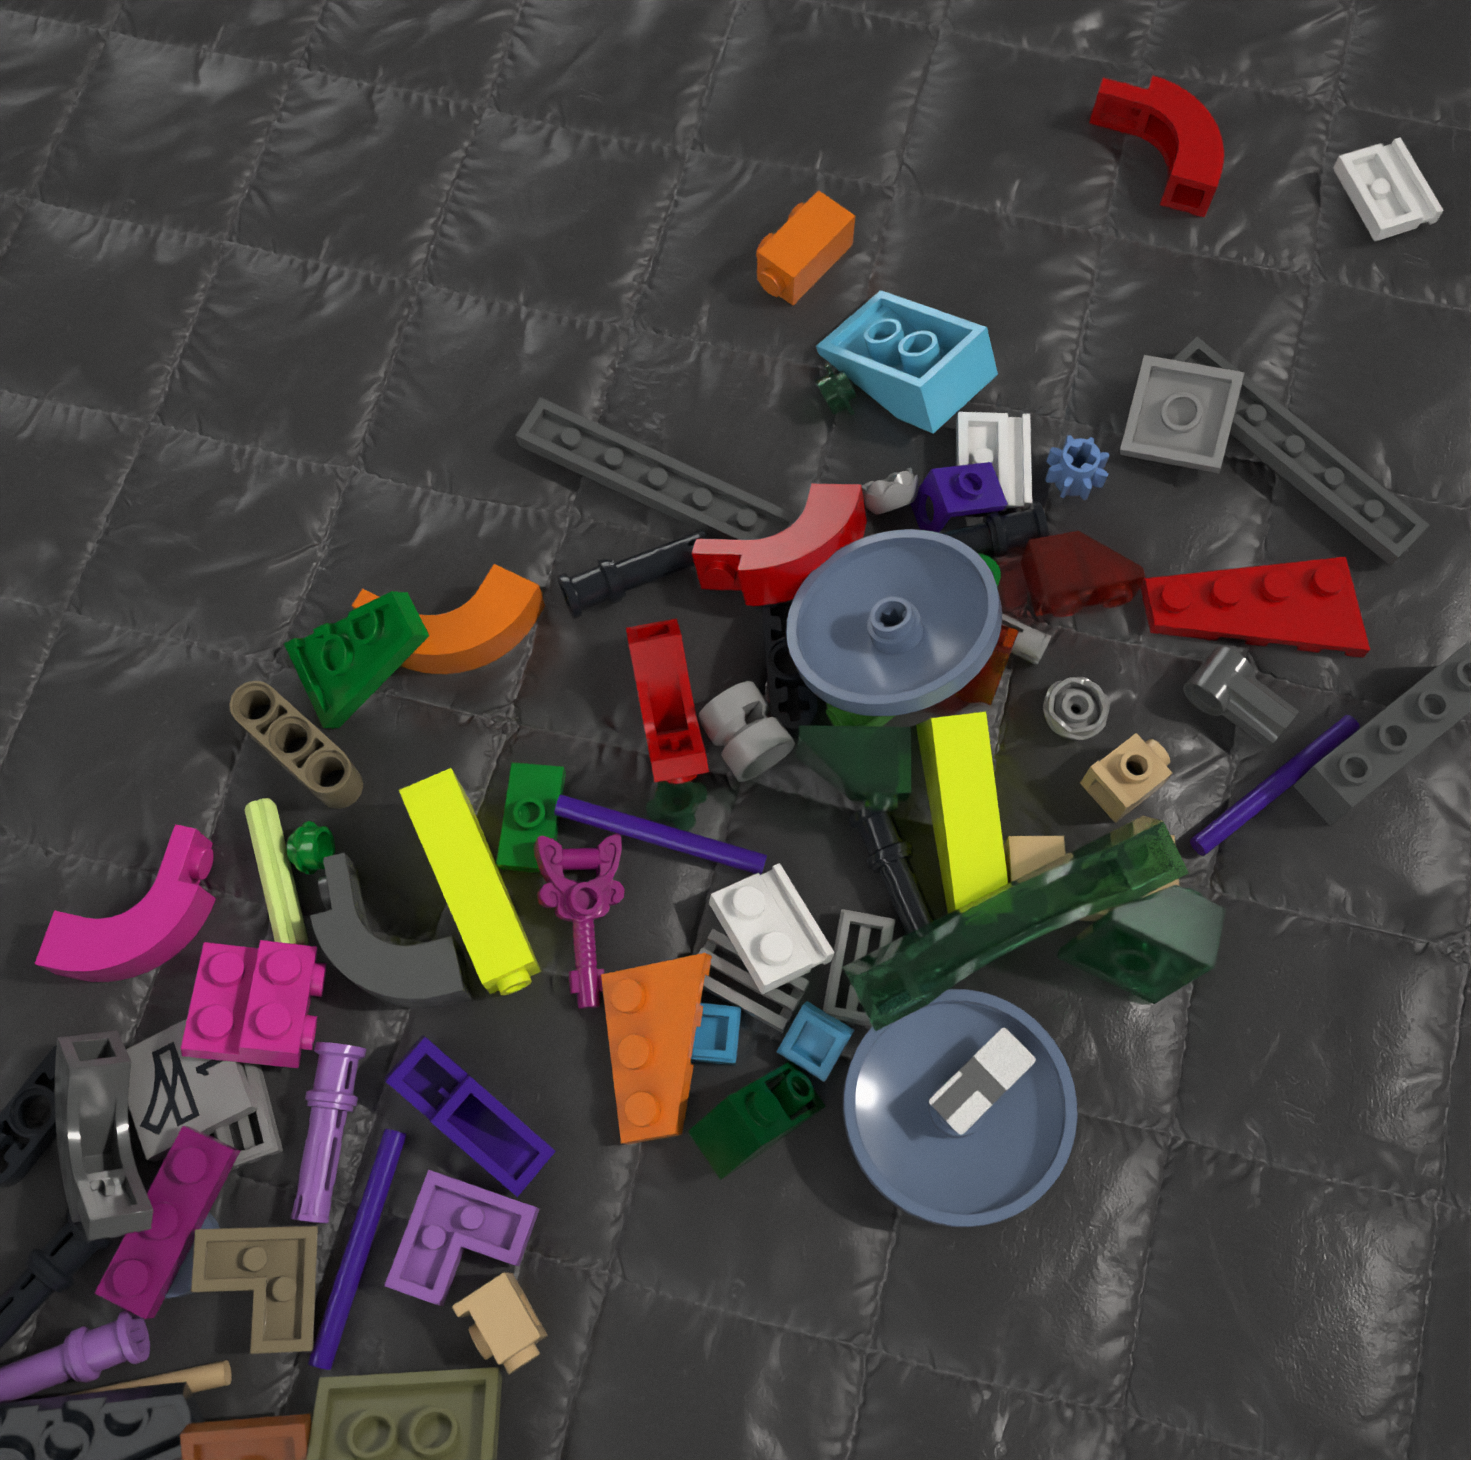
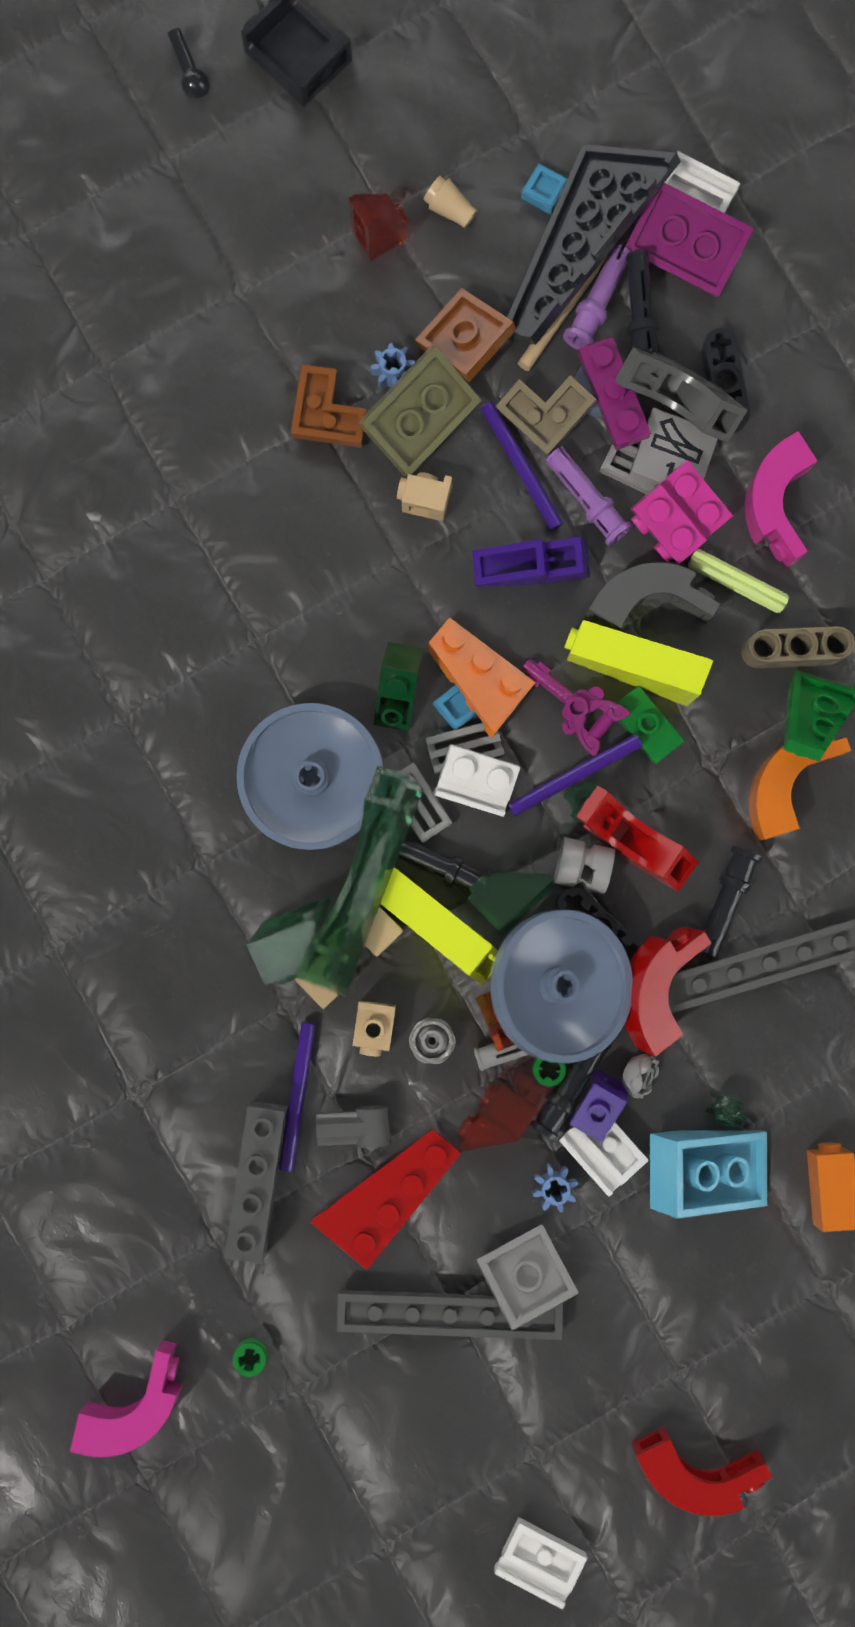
camera: 135 degrees right, 15 degrees up
(309, 846) = (735, 608): green plate -> none
(447, 1221) = (491, 513): medium lavender plate -> none
(815, 1041) = (405, 747): dark azure tile -> none
(982, 1081) = (309, 795): clear sticker -> none

